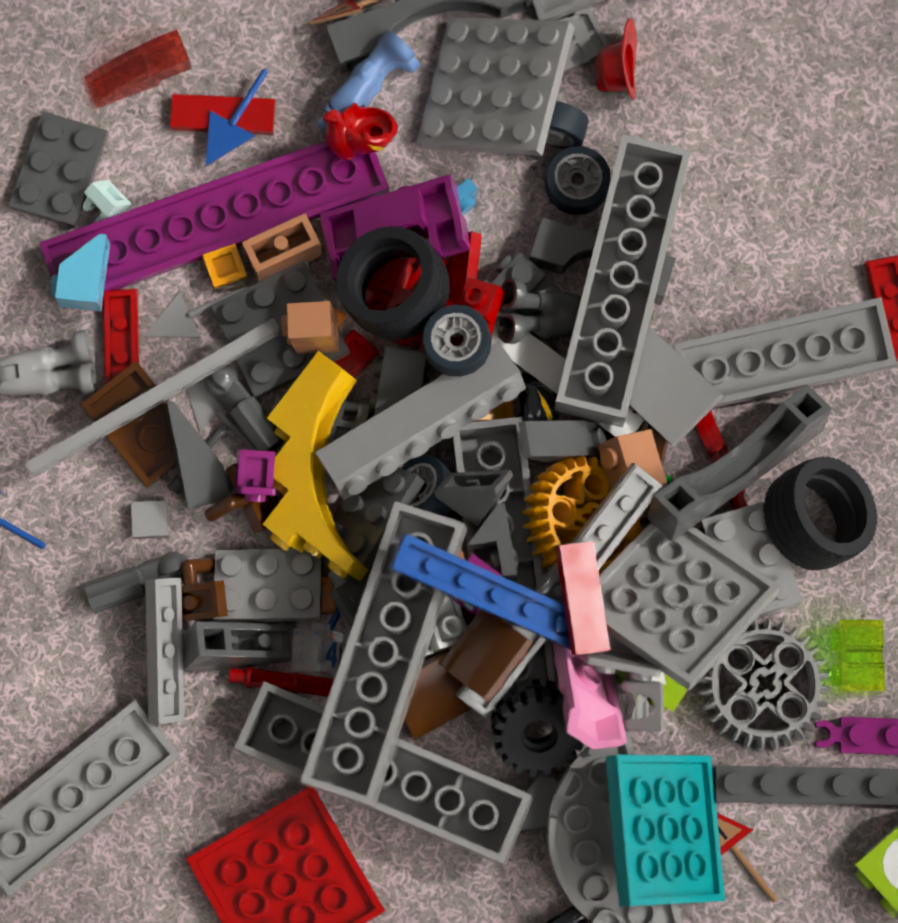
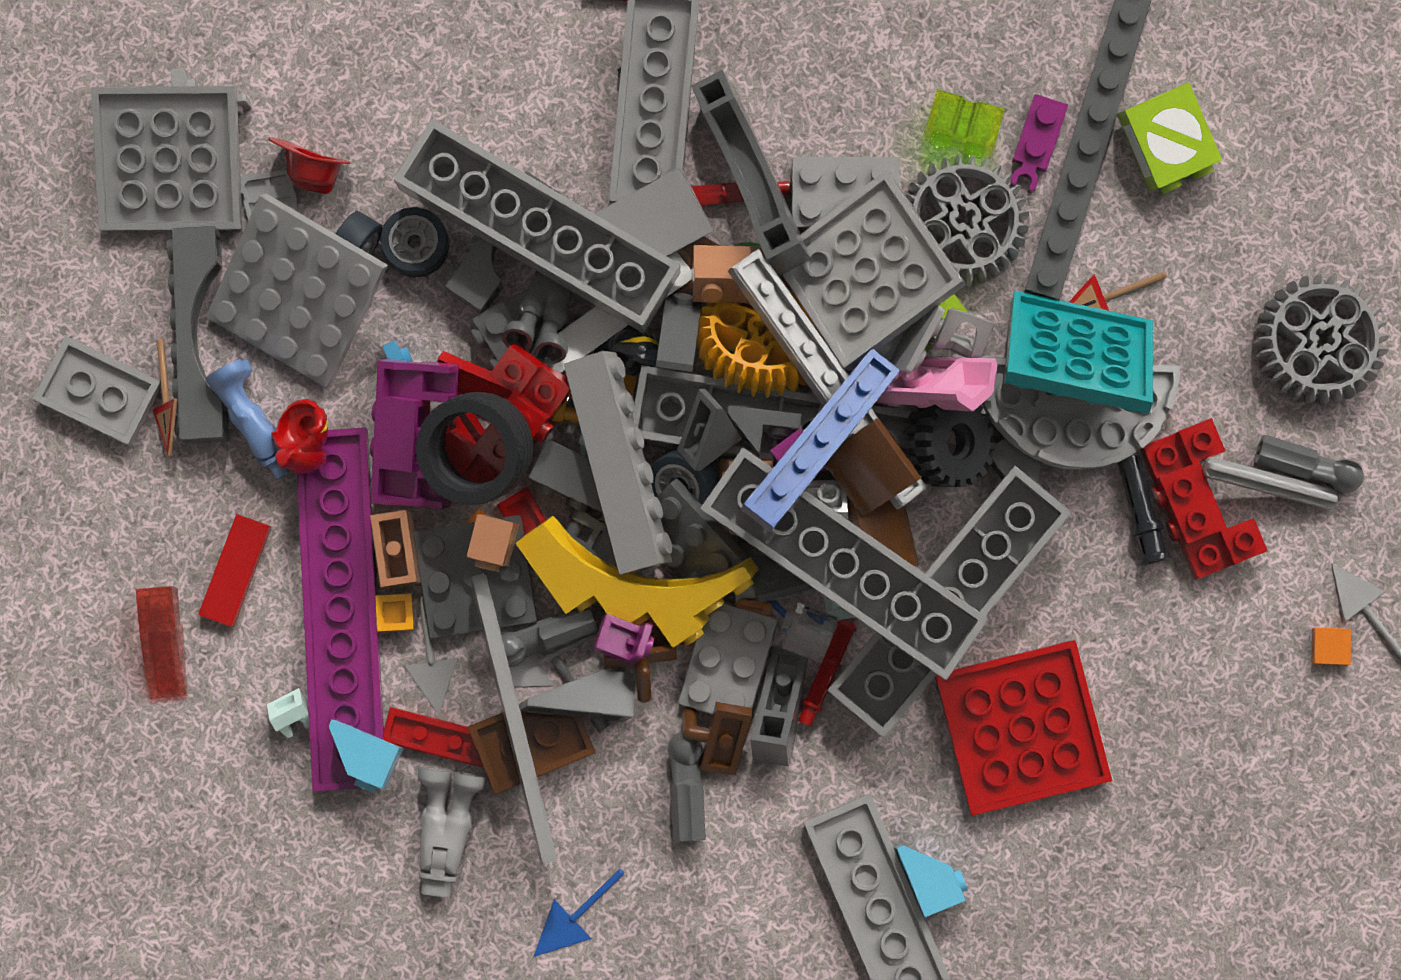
camera: 70 degrees left, 5 degrees up
(58, 169) = (240, 751): dark grey plate -> none
(113, 837) = (931, 881): none -> medium azure slope
(149, 519) = (627, 759): light grey tile -> none
(164, 650) = (765, 779): light grey plate -> none
(225, 134) = (258, 573): blue piece -> none
(456, 322) = (534, 402): wheel -> none
(582, 598) = (847, 358): tile -> none
(848, 500) = (821, 84): black tyre -> none

